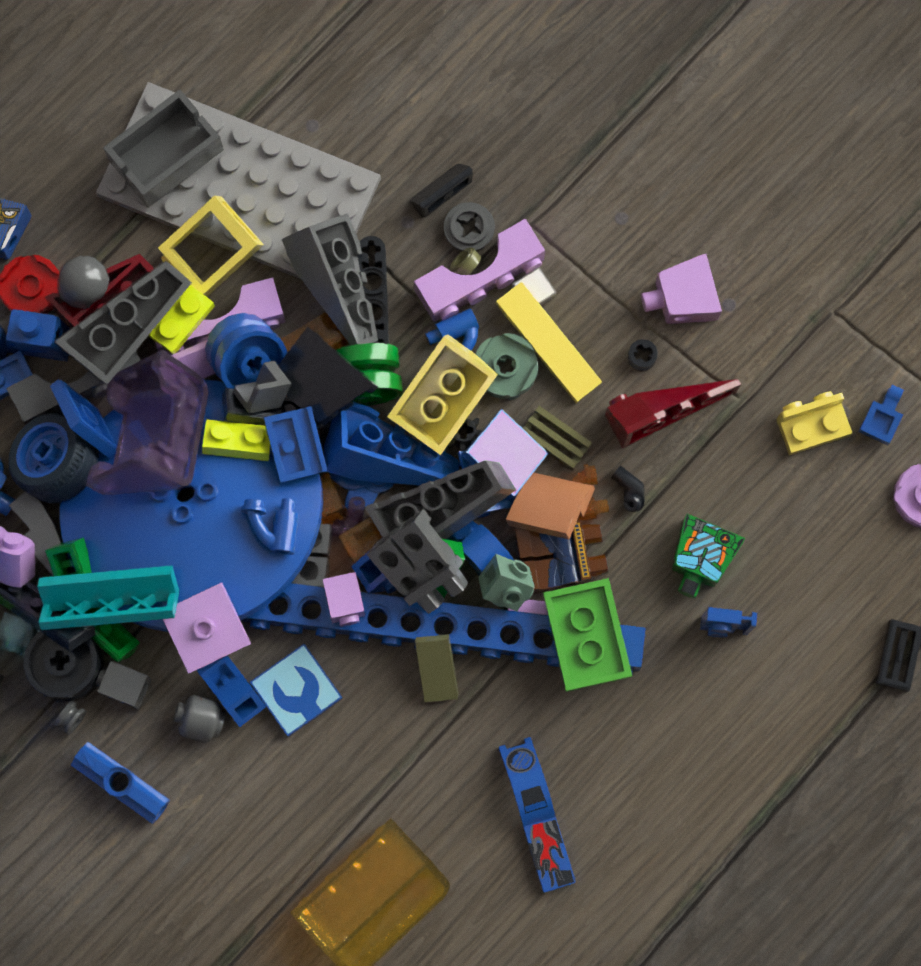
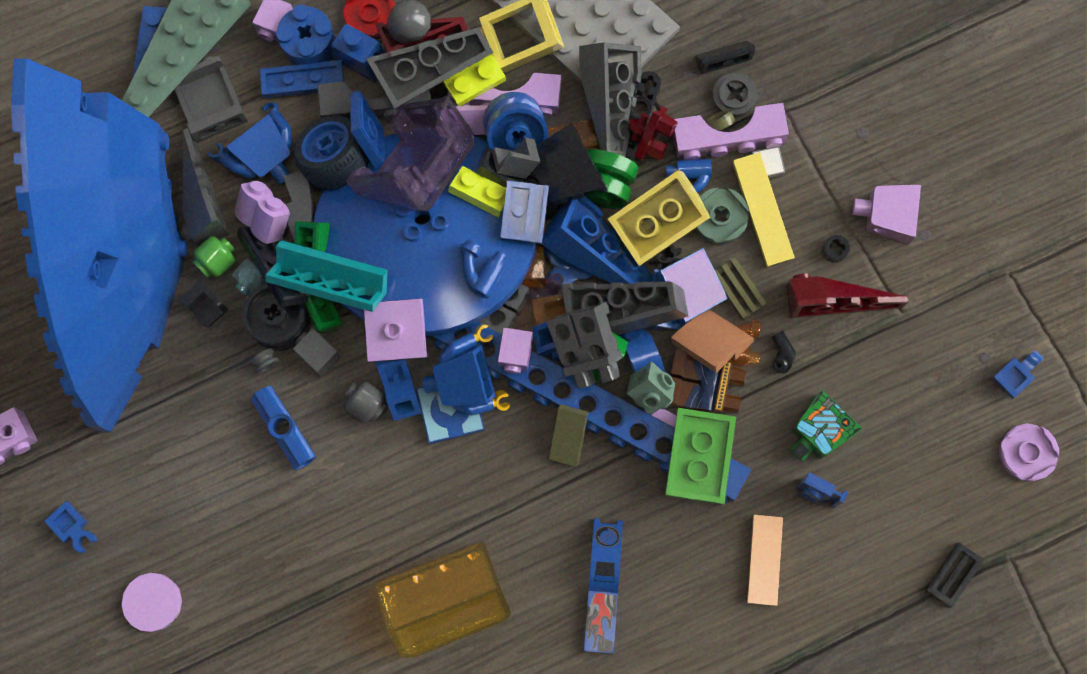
camera: 30 degrees right, 0 degrees up
(299, 648) = (464, 377): none -> blue torso
(400, 291) = (658, 123): none -> dark red hips
(696, 719) = (764, 560): none -> light nougat tile
(813, 423) = (957, 356): light yellow bracket -> none

